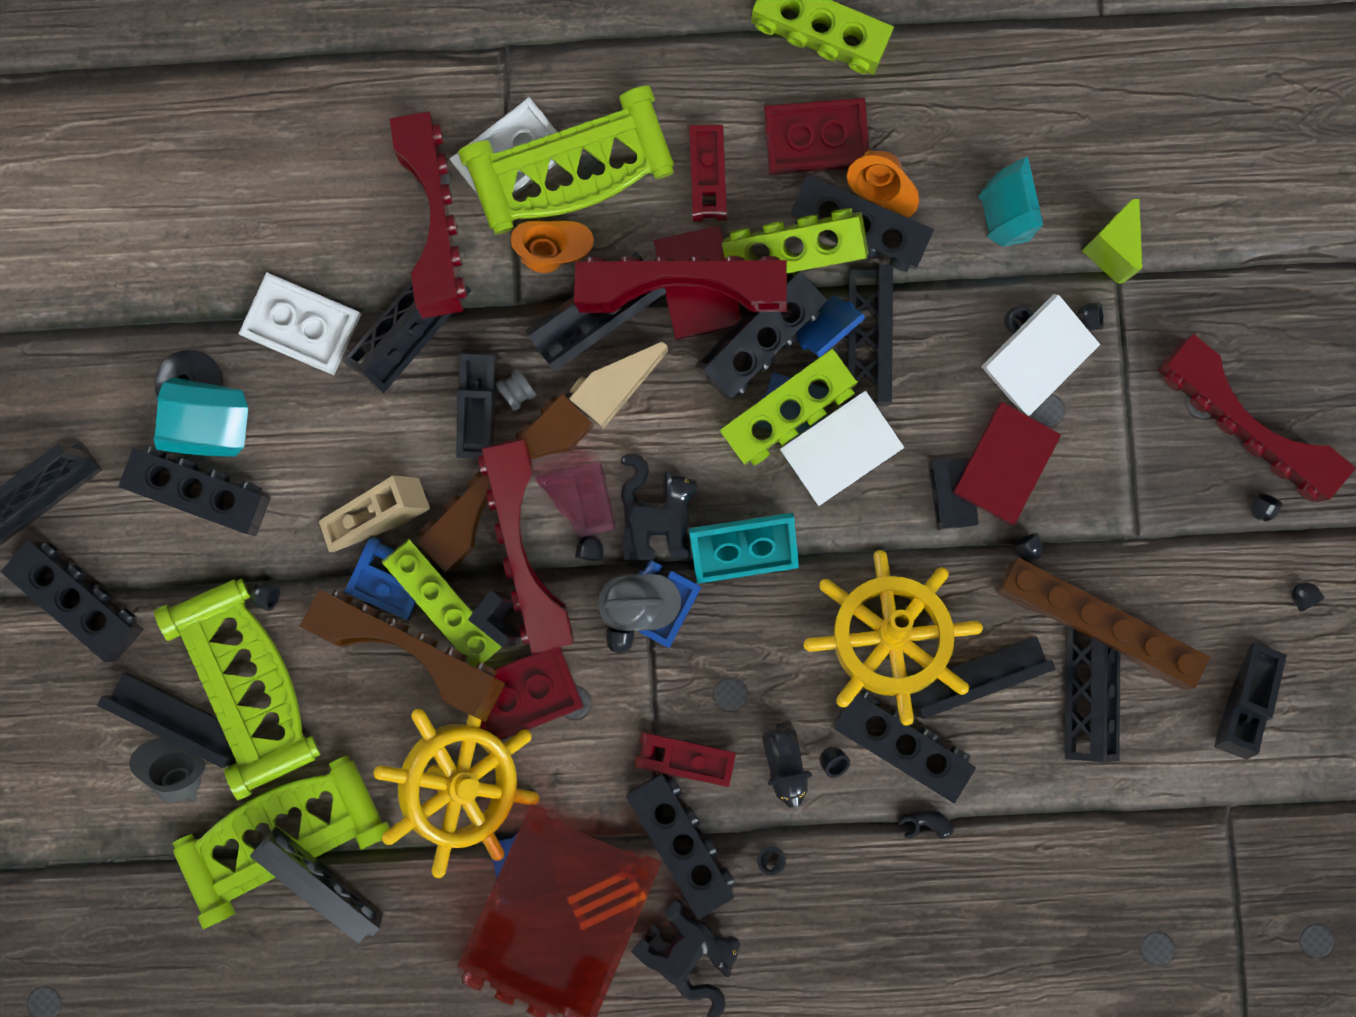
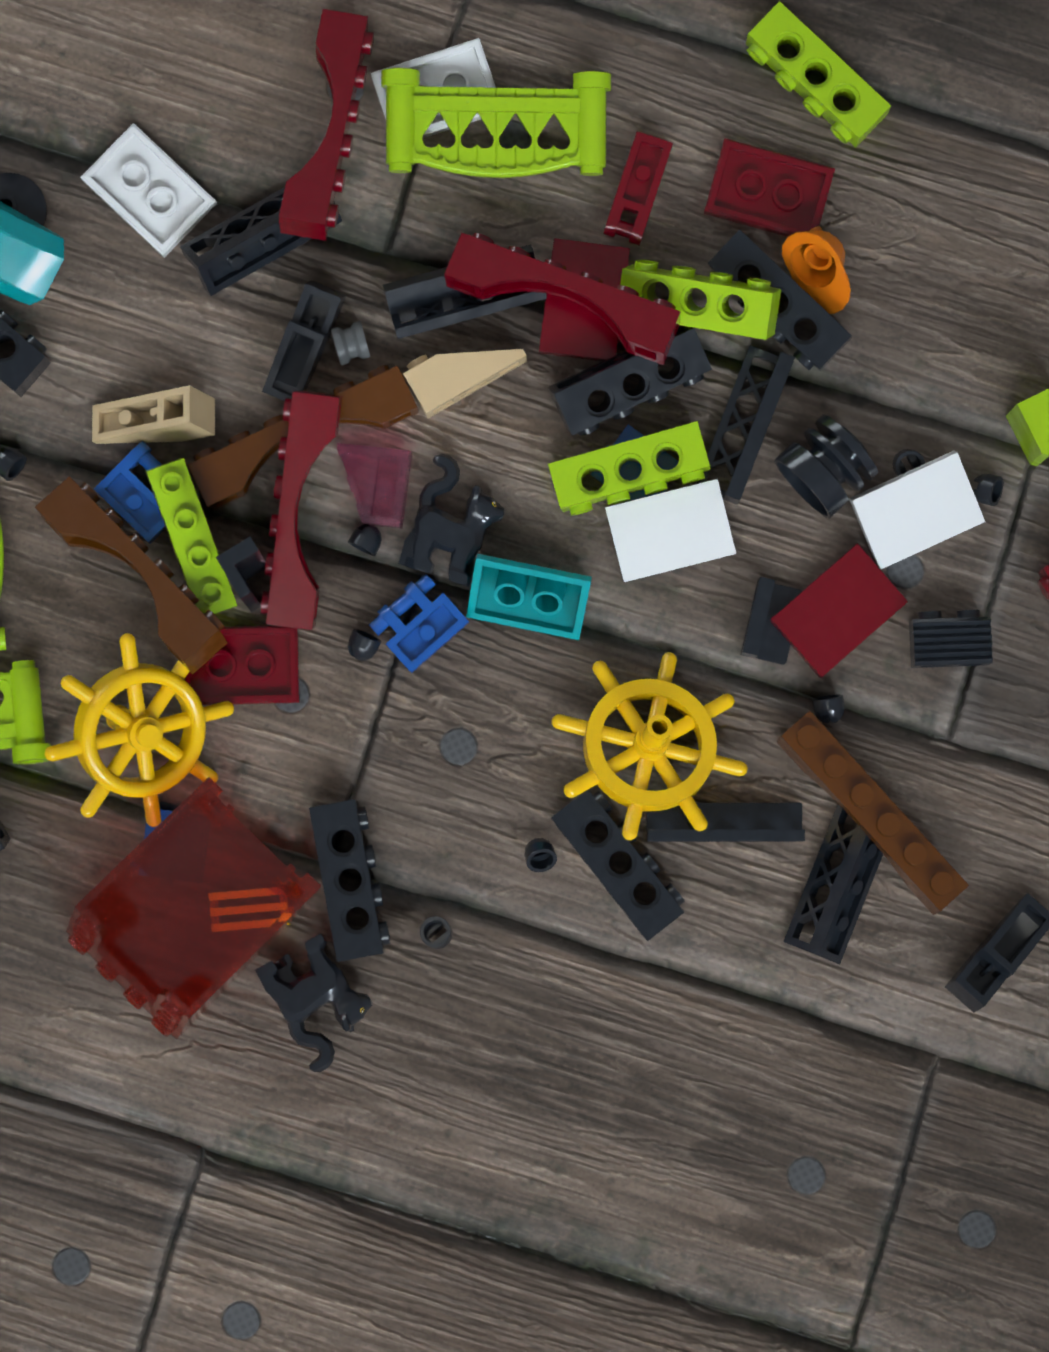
camera: 15 degrees right, 0 degrees up
(551, 243) = (444, 203): orange piece -> none
(639, 602) = (397, 613): dark grey piece -> none
(686, 759) = (386, 795): dark red plate -> none
(785, 764) = (486, 833): black animal -> none
(829, 327) = (710, 395): blue piece -> none
(934, 819) = (620, 952): black arm -> none
(956, 340) = (833, 460): none -> black wheel
(1011, 205) = (943, 340): teal slope -> none
(1110, 455) = (950, 640): none -> black brick

